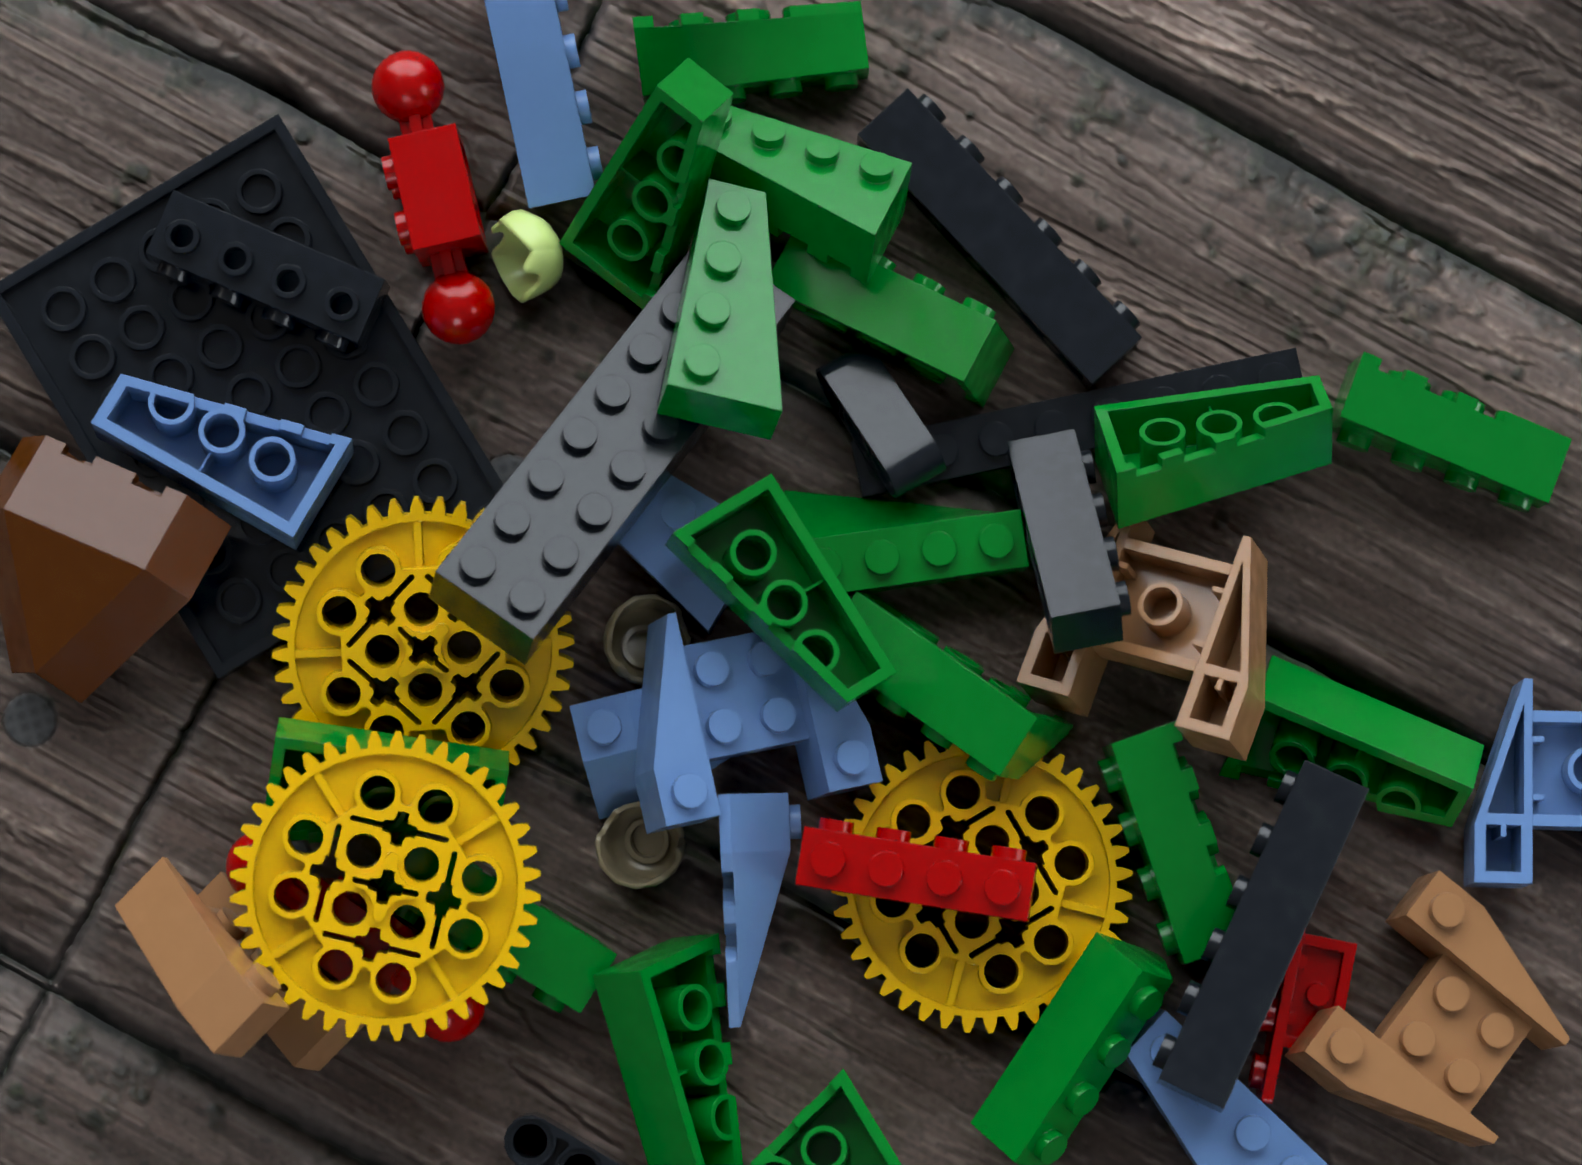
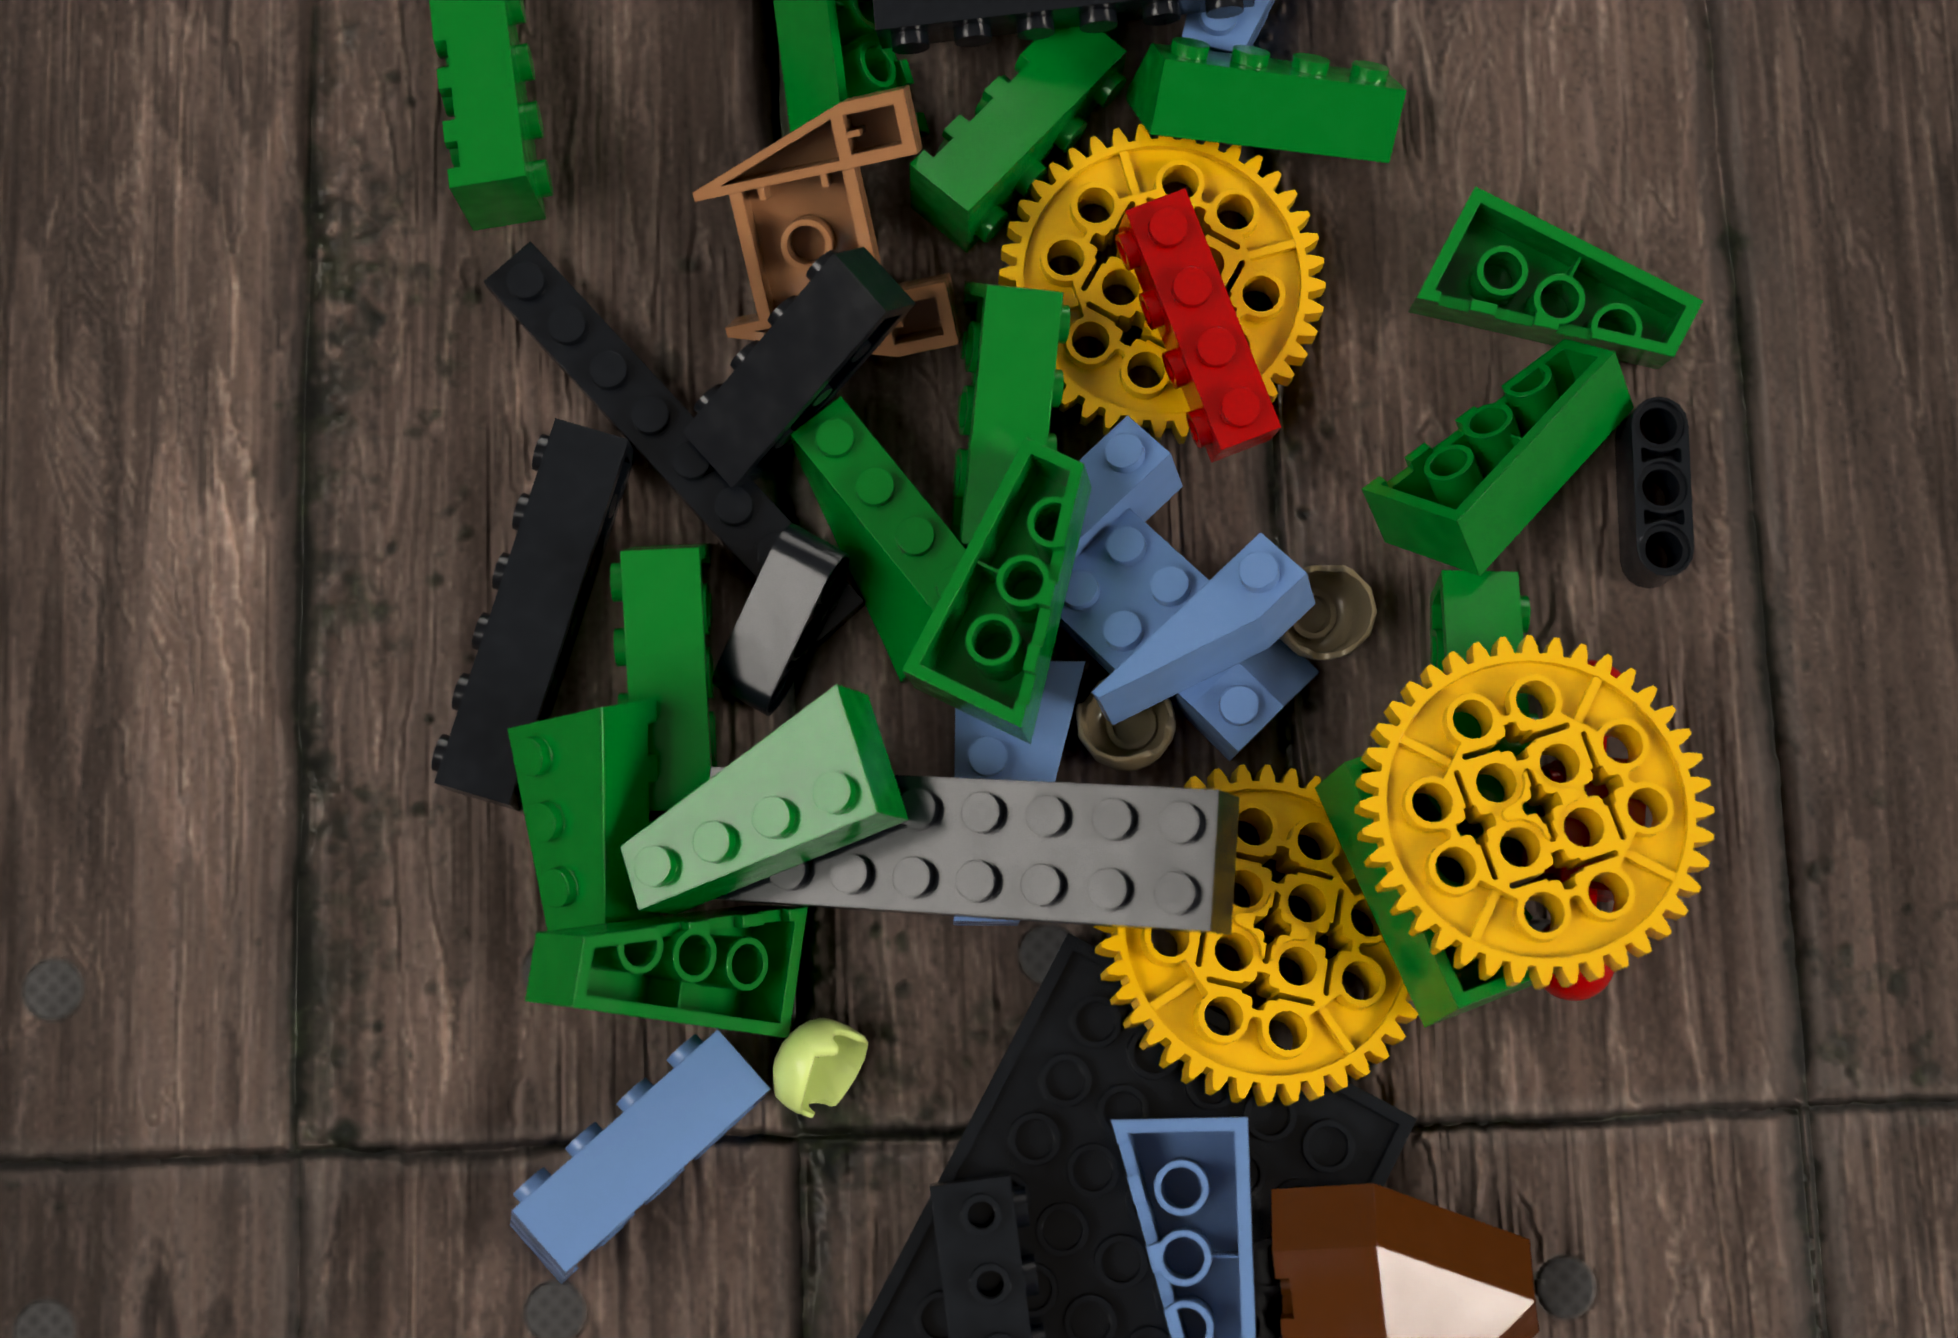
camera: 125 degrees left, 5 degrees down
(210, 975) = (1726, 948): medium nougat wedge -> none
(437, 195) = (809, 1189): red brick -> none
(753, 862) = (1295, 487): medium blue wedge -> none
(760, 52) = (482, 959): green wedge -> none
(1209, 444) = (626, 299): green wedge -> none

